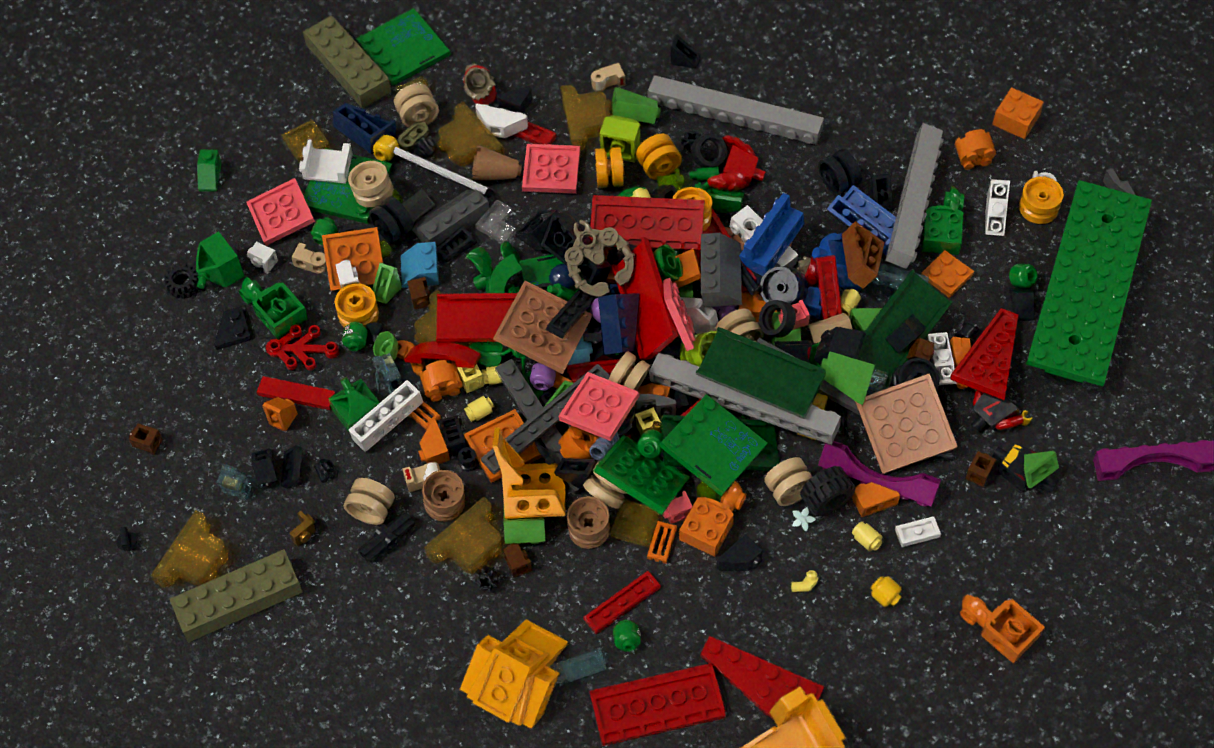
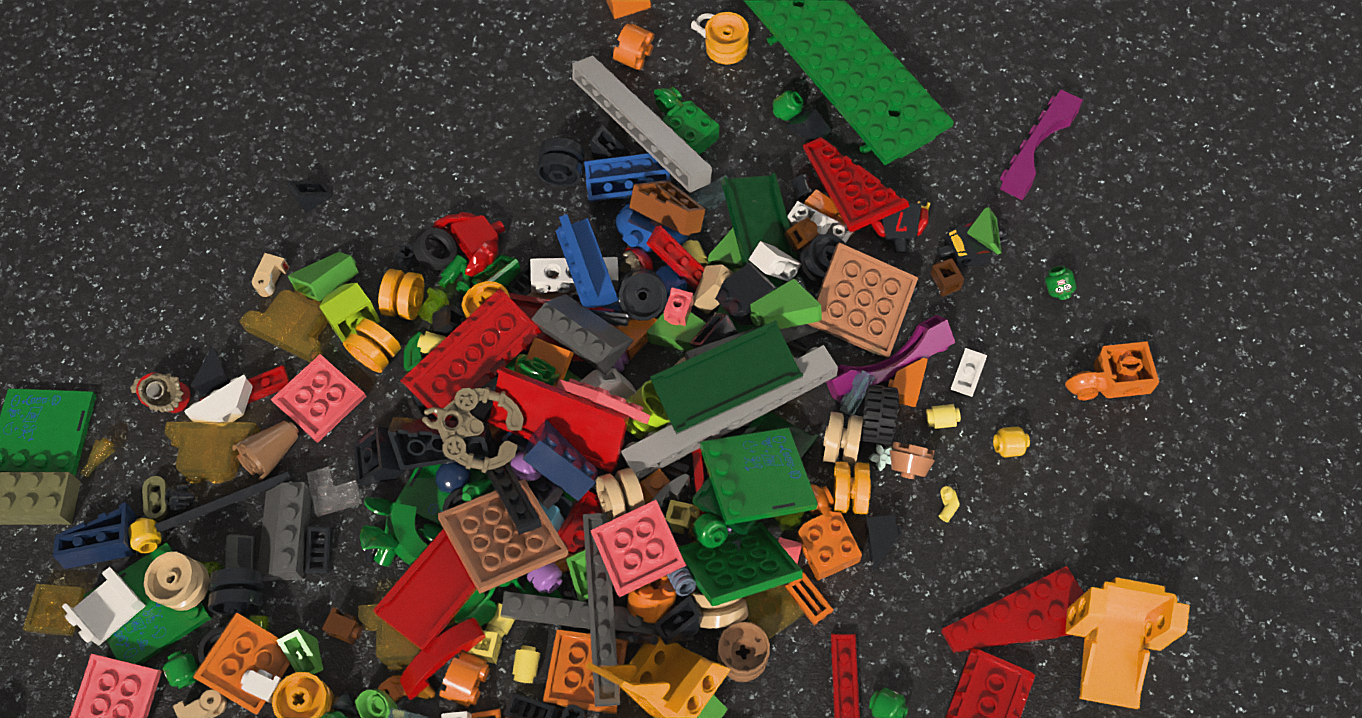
camera: 50 degrees left, 5 degrees up
(416, 104) = (126, 469): tan wheel -> none
(420, 262) = (310, 602): dark azure slope -> none
(736, 110) = (409, 197): light grey brick -> none
(741, 323) = (649, 362): tan wheel -> none
(758, 509) = (855, 488): none -> light orange wheel
(788, 321) = (666, 337): black tyre -> none
(813, 535) = (911, 460): none -> nougat cone
(839, 460) = (853, 399): none -> clear light blue plate
(881, 348) = (774, 262): none -> white slope
(905, 333) = (774, 230): black slope -> none
(947, 273) = (731, 159): orange plate -> none
(996, 207) = (704, 74): white slope -> none
(1045, 544) = (1060, 282): none -> green head

